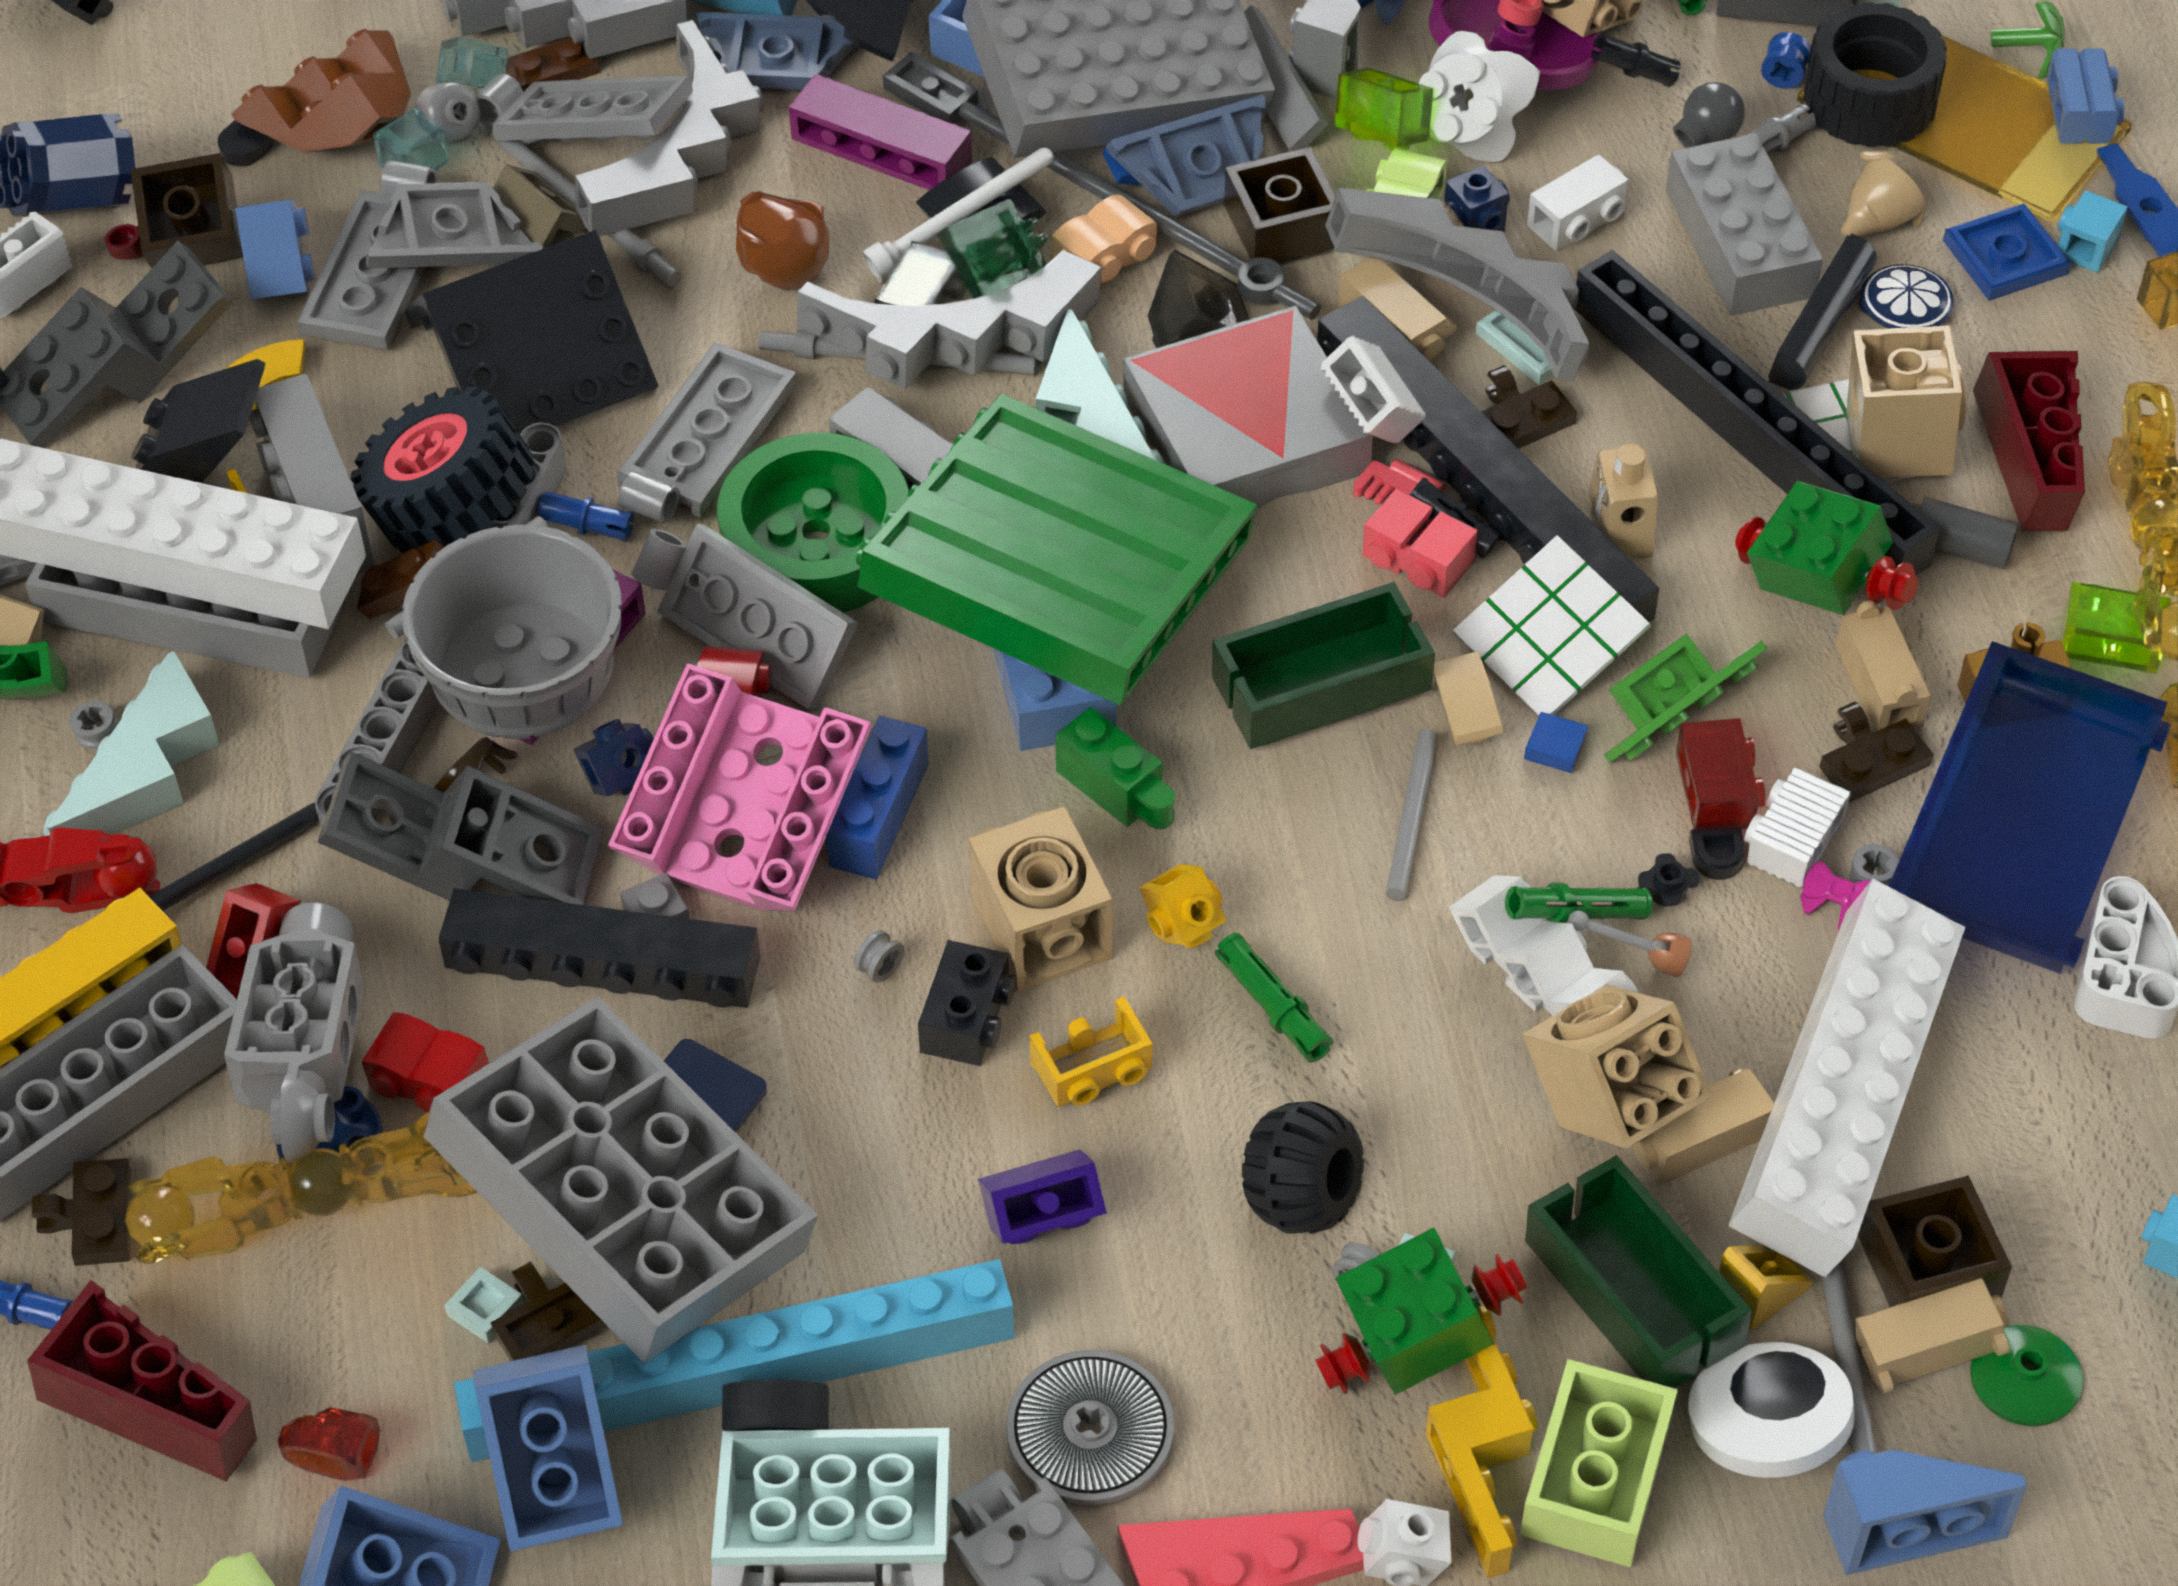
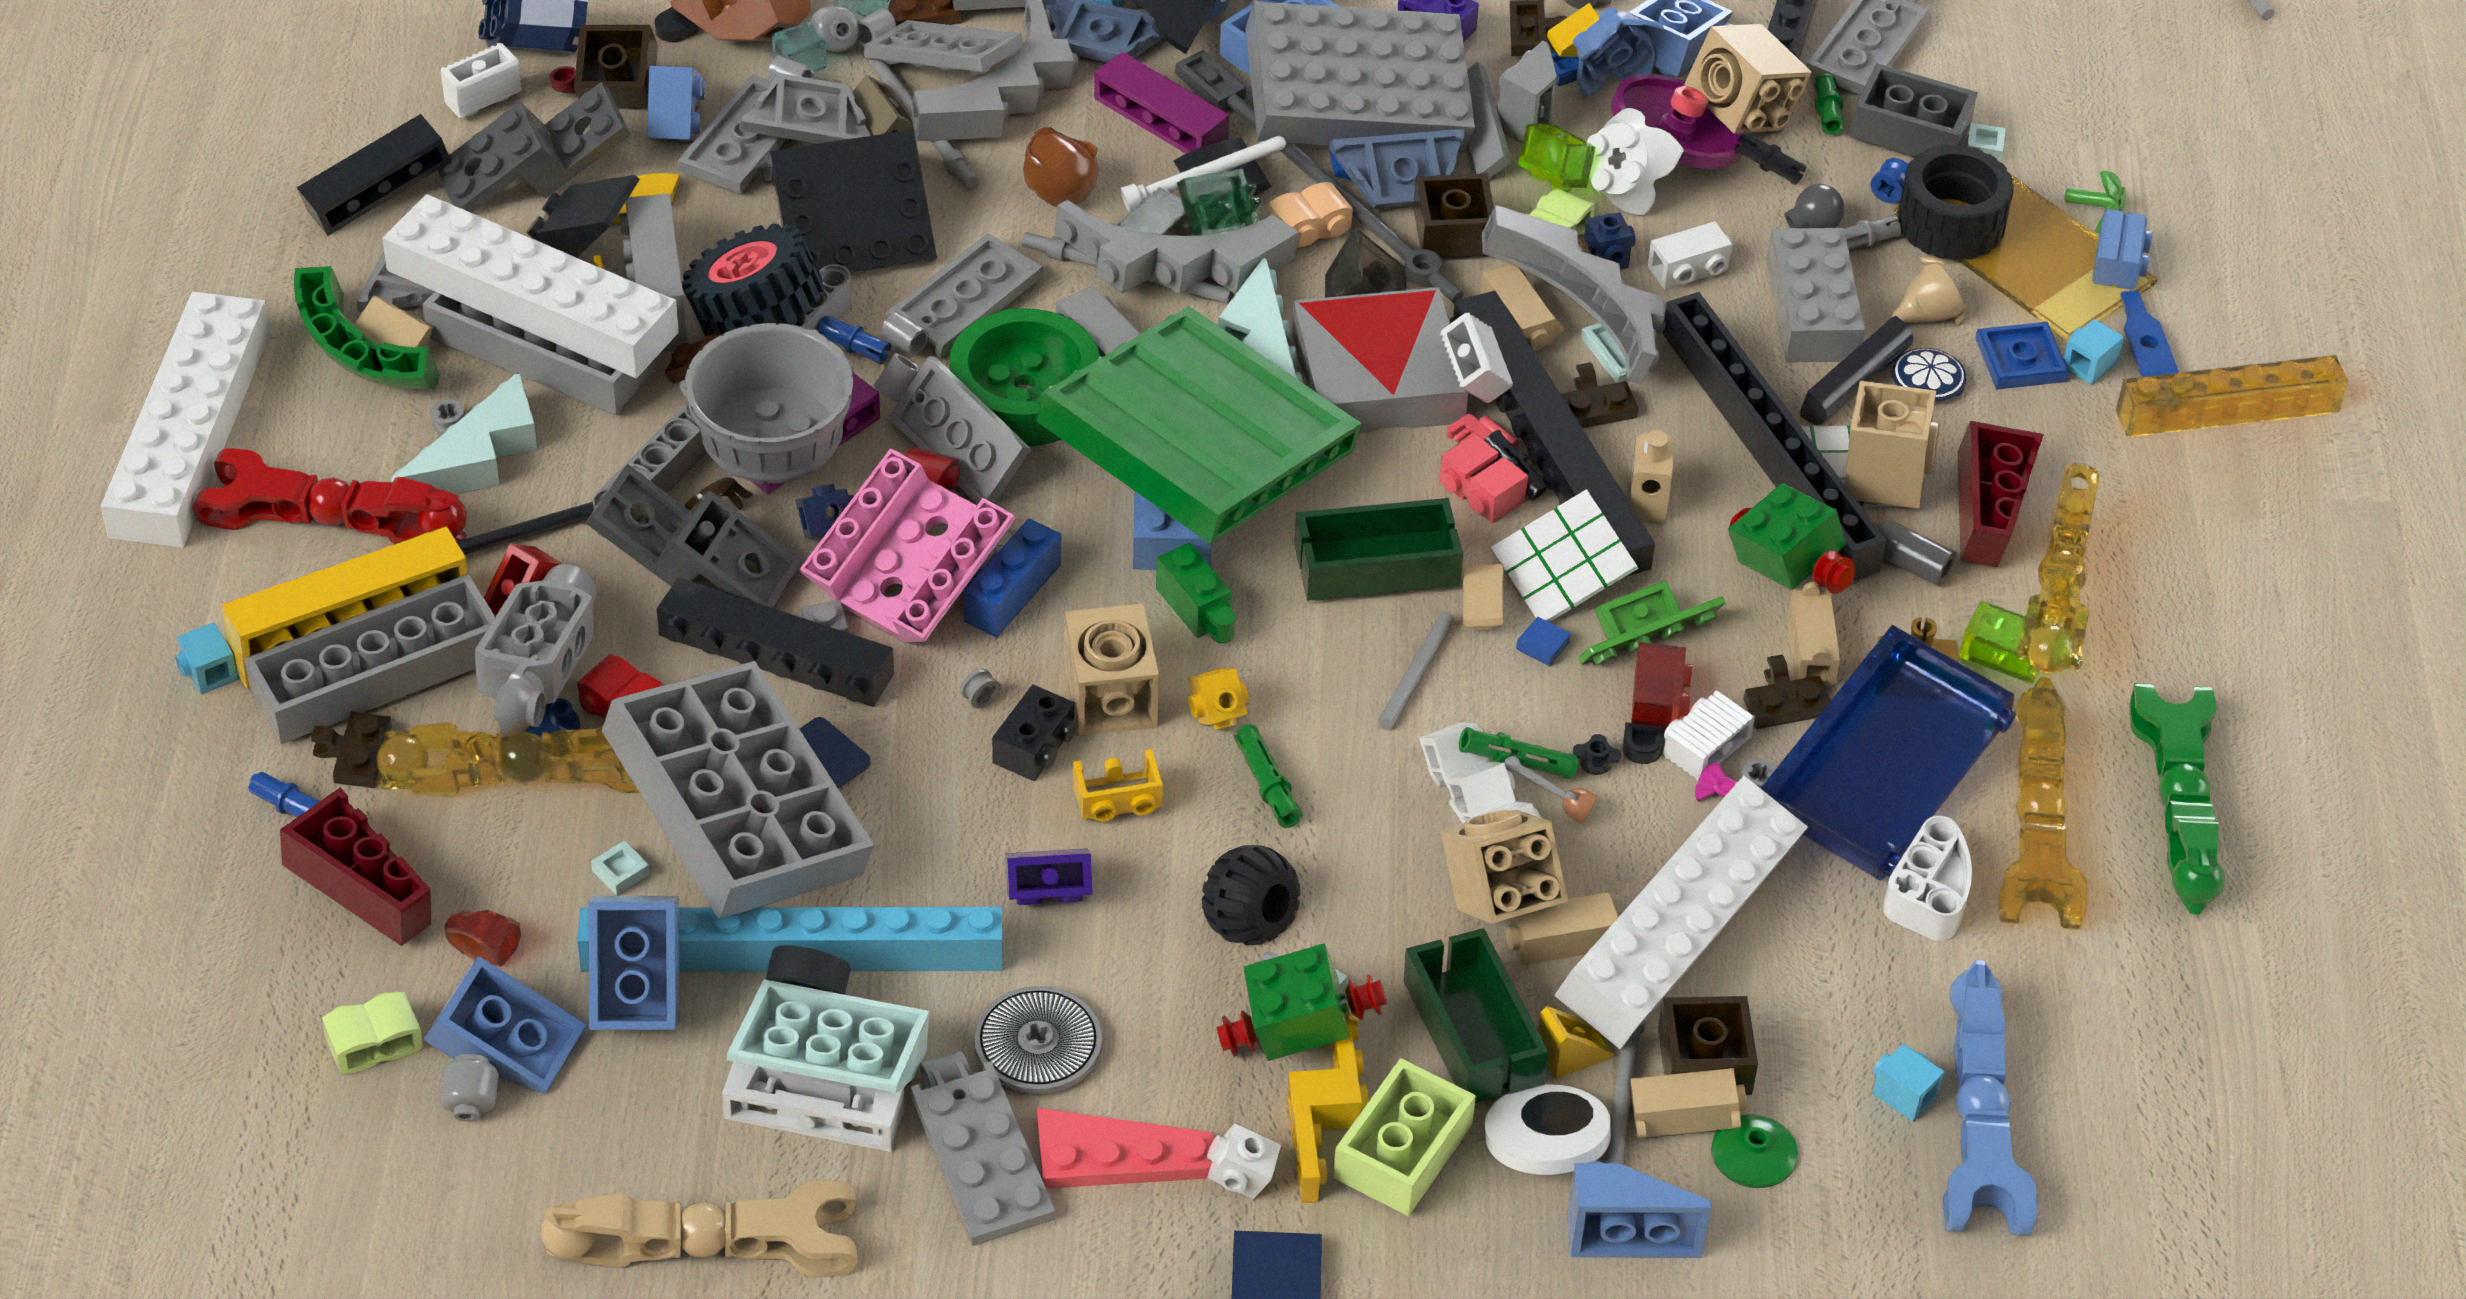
camera: 10 degrees right, 5 degrees down
(546, 1320) = (662, 879): dark brown plate -> none

